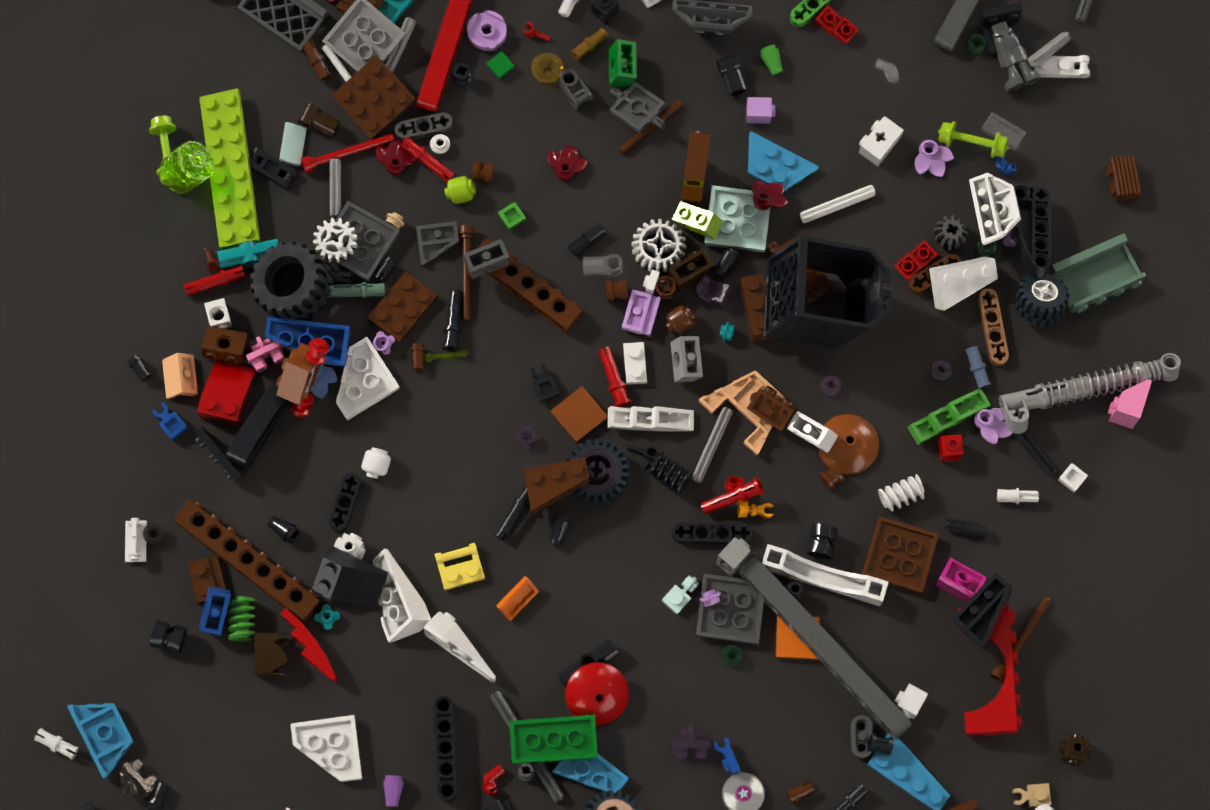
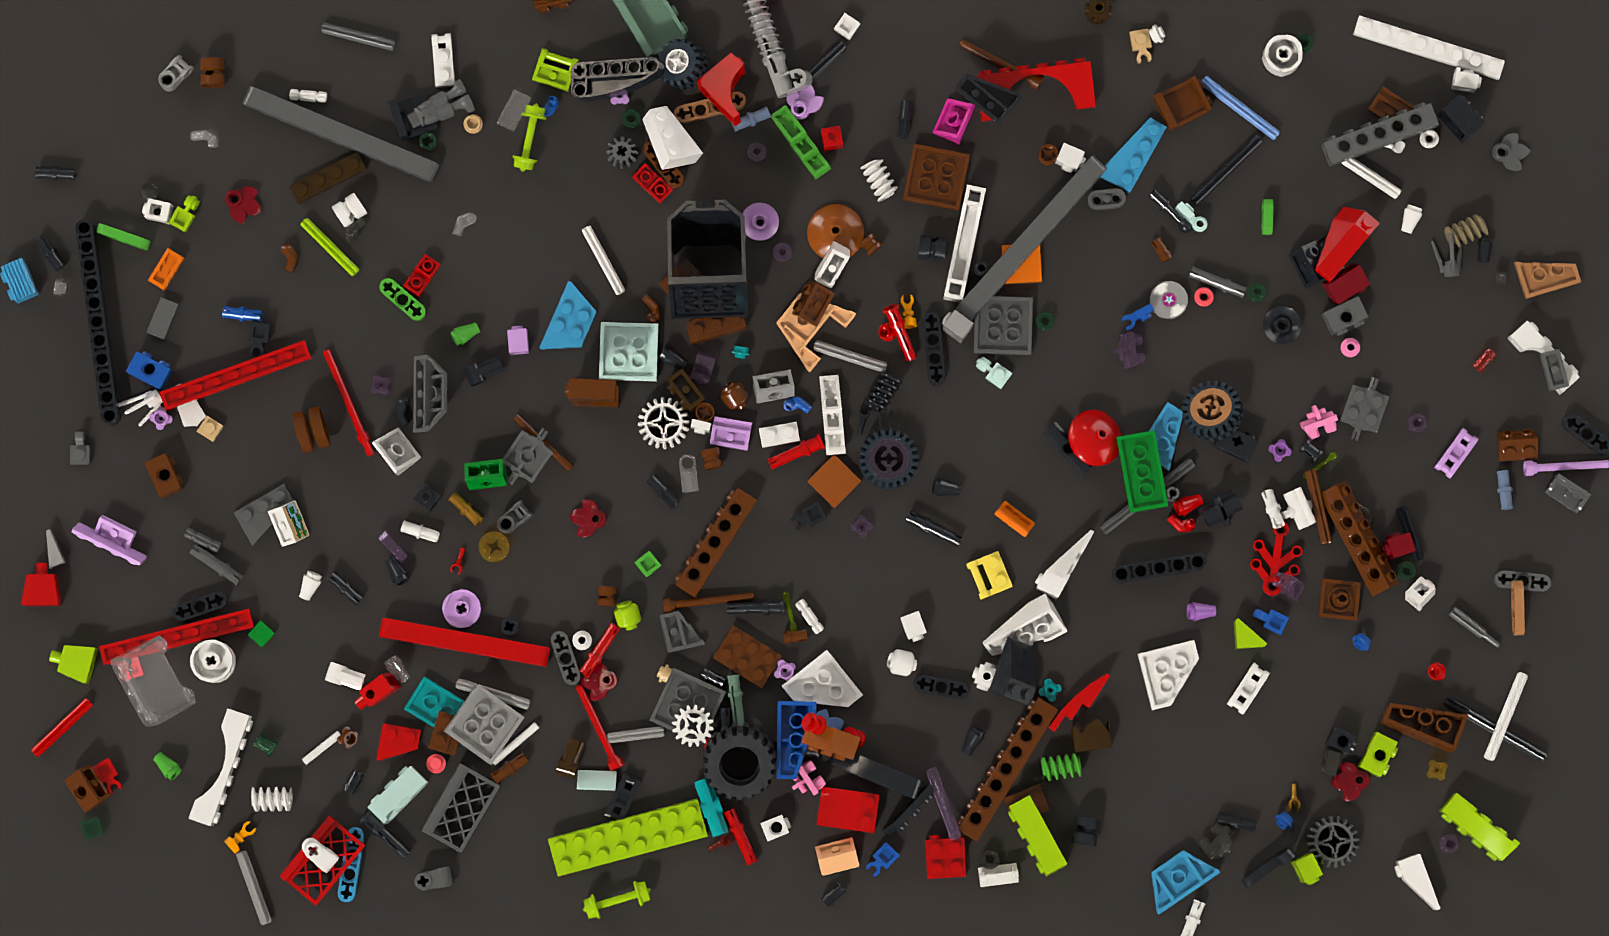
camera: 90 degrees left, 10 degrees up
(163, 487) = (945, 857): none -> red plate
(168, 581) = (1037, 836): none -> lime wedge
(187, 167) = (636, 875): clear neon green wheel -> none
(214, 610) = (1058, 791): blue brick -> none
(217, 337) = (799, 807): reddish brown brick -> none
(218, 489) = (944, 804): none -> clear purple axle
(374, 97) = (542, 708): reddish brown plate -> none
(413, 479) = (913, 626): none -> white brick
(437, 374) = (809, 616): none -> white axle
(486, 259) = (701, 579): dark grey brick -> none
(500, 65) = (495, 592): green tile -> none
(513, 788) = (1186, 504): none -> red cone
(554, 481) = (907, 494): reddish brown wedge -> none
(667, 384) = (796, 403): none -> blue arm
(697, 220) = (637, 388): brick -> none
(710, 597) = (998, 343): lavender plate -> none
(768, 195) = (602, 323): dark red plate -> none
(865, 355) = (763, 212): none -> lavender dish
(877, 151) = (532, 215): white brick -> none
(880, 744) = (1114, 181): black bush -> none
(919, 674) = (1050, 152): none -> reddish brown wheel
(934, 161) = (551, 174): lavender plate -> none
(992, 89) = (473, 124): none -> tan plate
(994, 207) = (599, 112): white wedge -> none
(1017, 337) = (720, 83): none -> red arch
(1017, 496) = (869, 75): white axle -> none
(1039, 169) = (553, 75): none -> lime plate
(1049, 49) = (429, 72): light grey axle -> none

